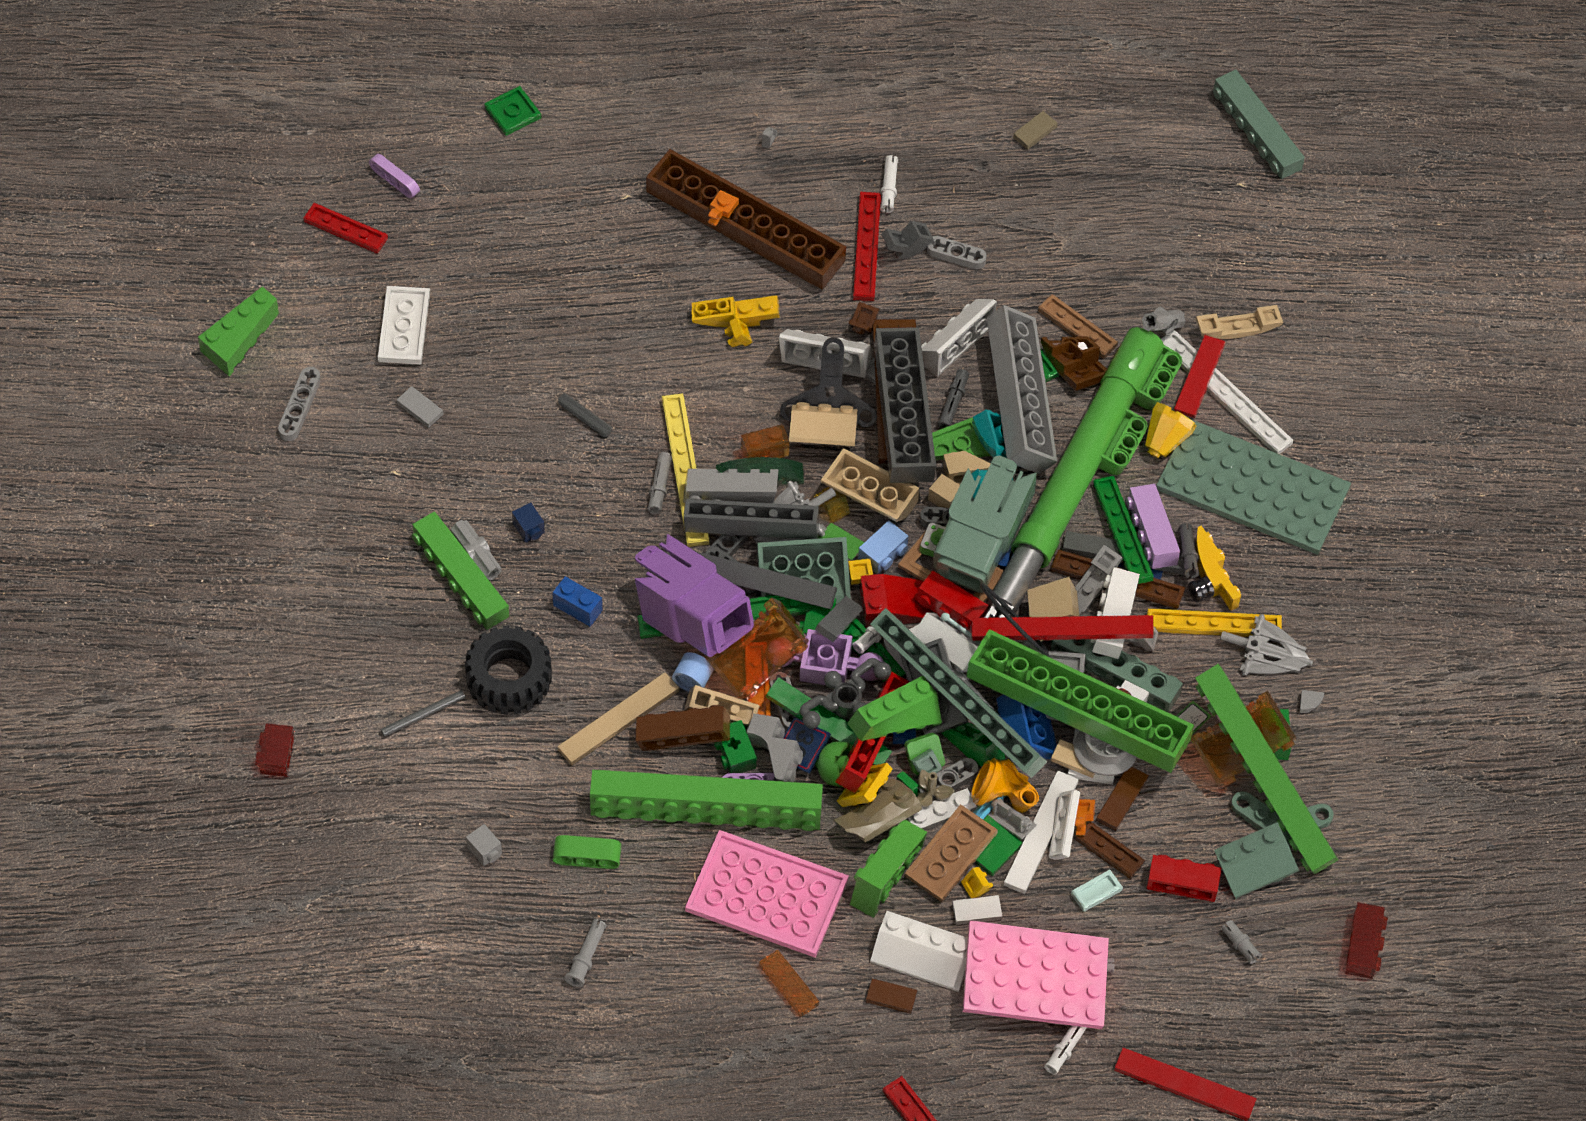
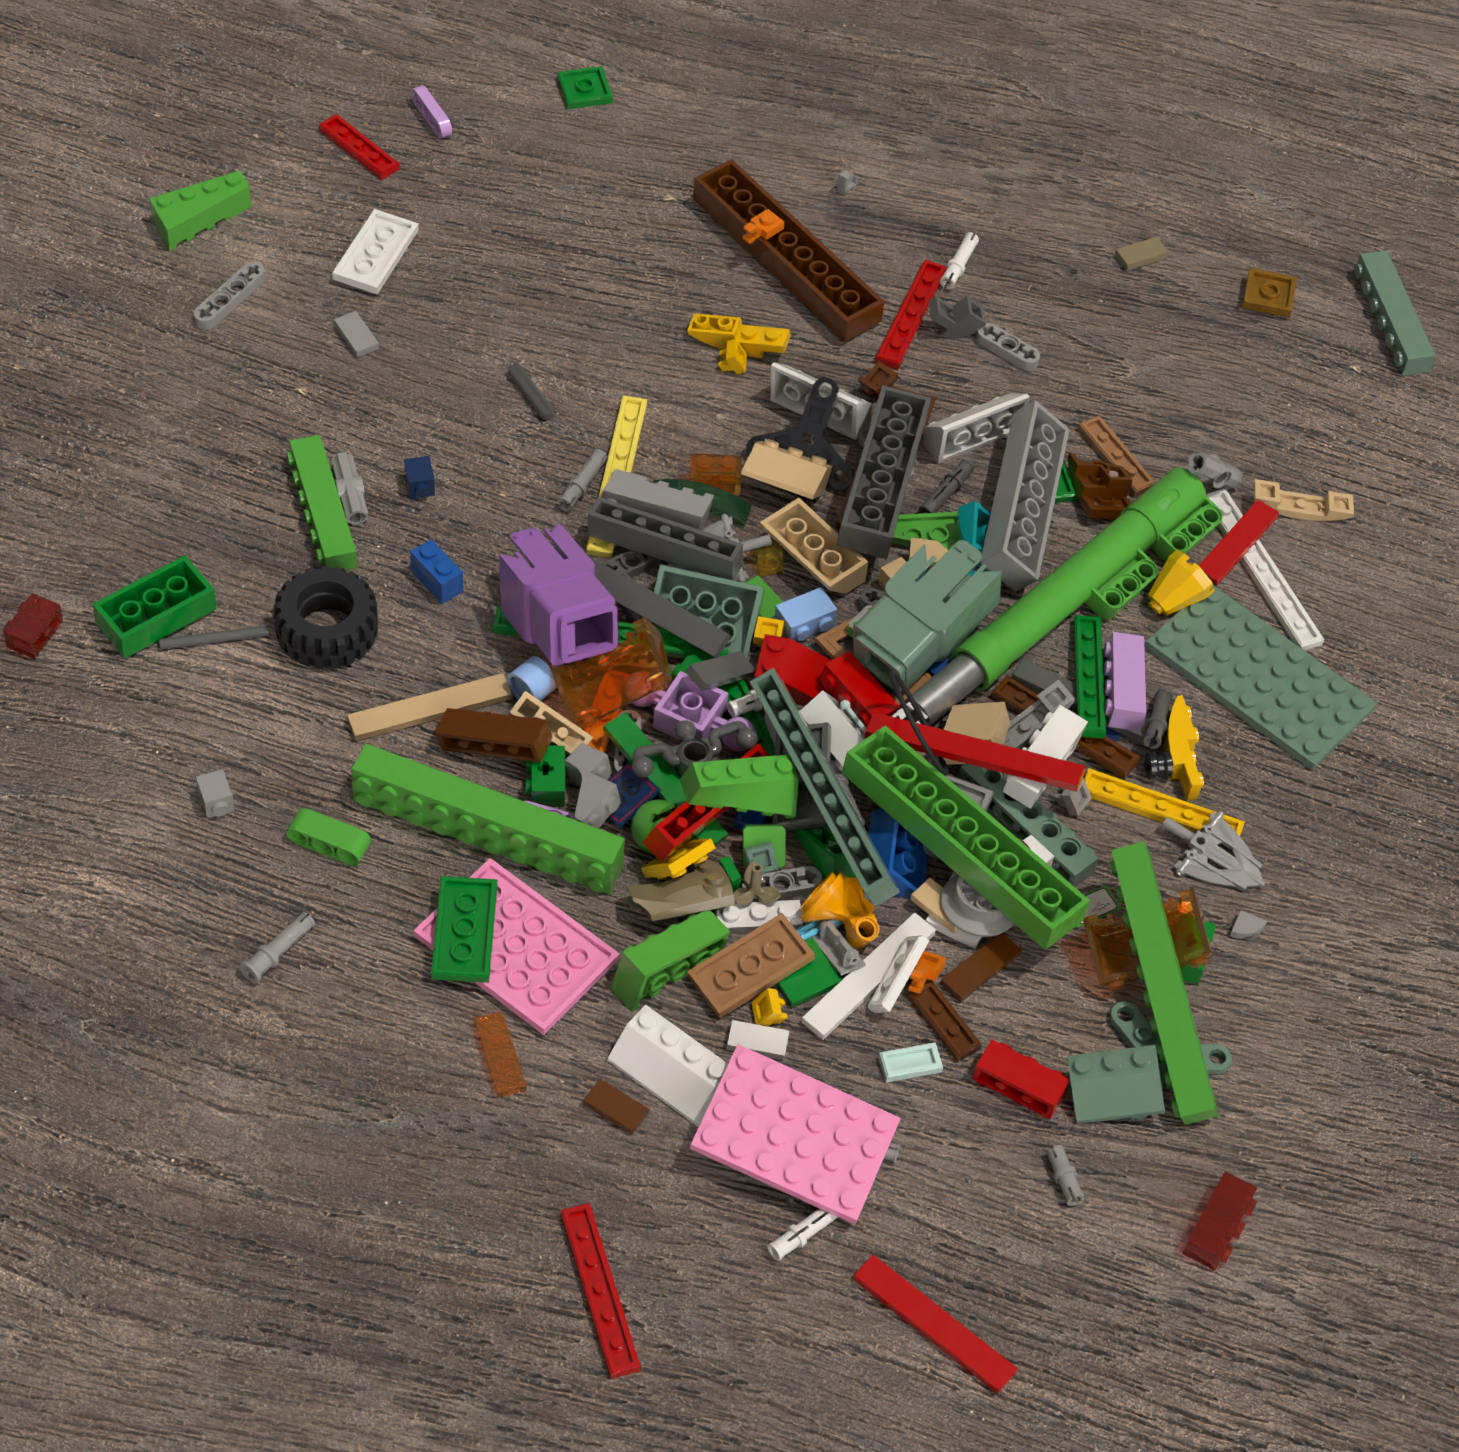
camera: 15 degrees right, 5 degrees down
(367, 703) = (154, 606): none -> green brick
(724, 894) = (464, 929): none -> green tile
(1151, 136) = (1269, 292): none -> pearl gold plate

